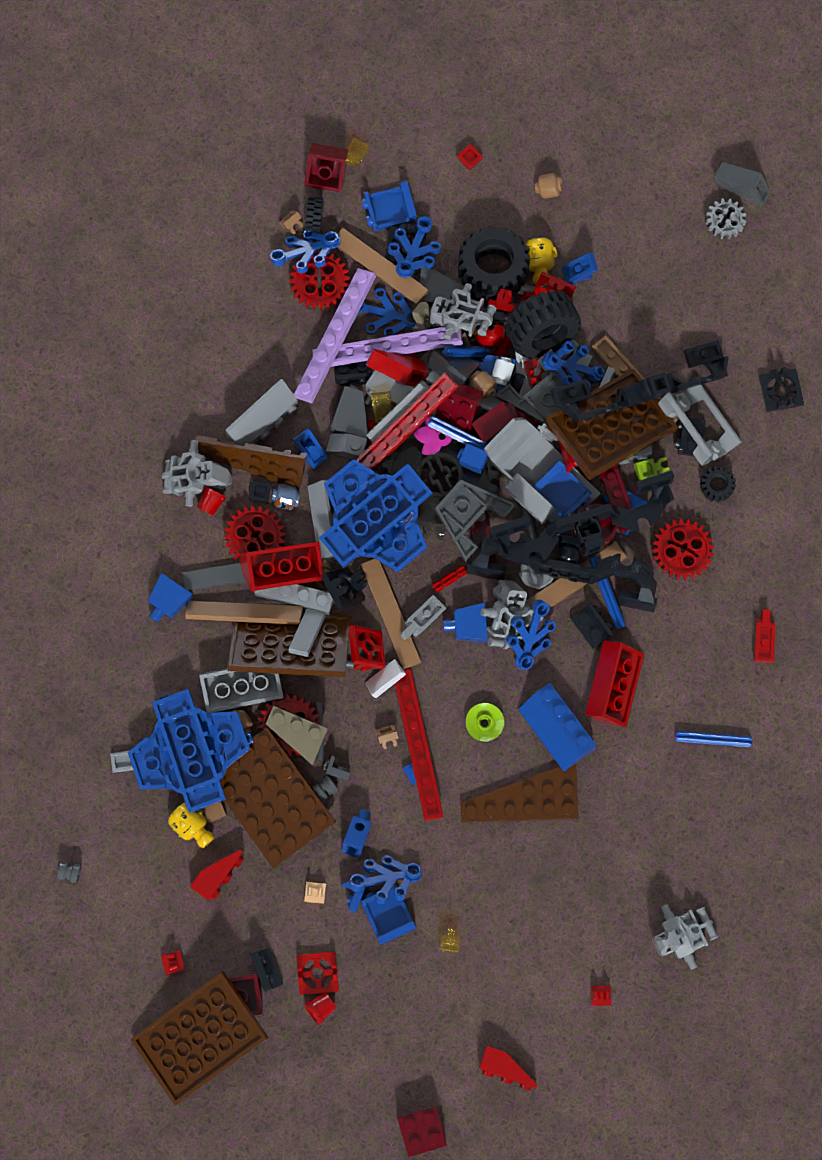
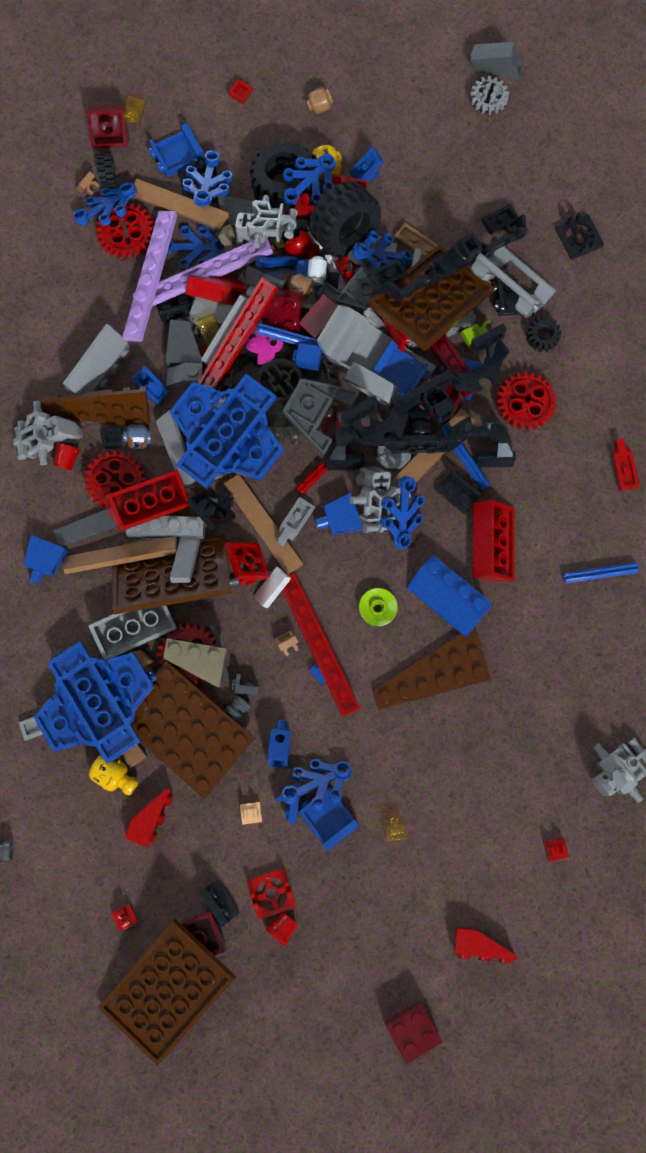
camera: 10 degrees left, 0 degrees up
(519, 274) = (309, 177): none -> blue plant

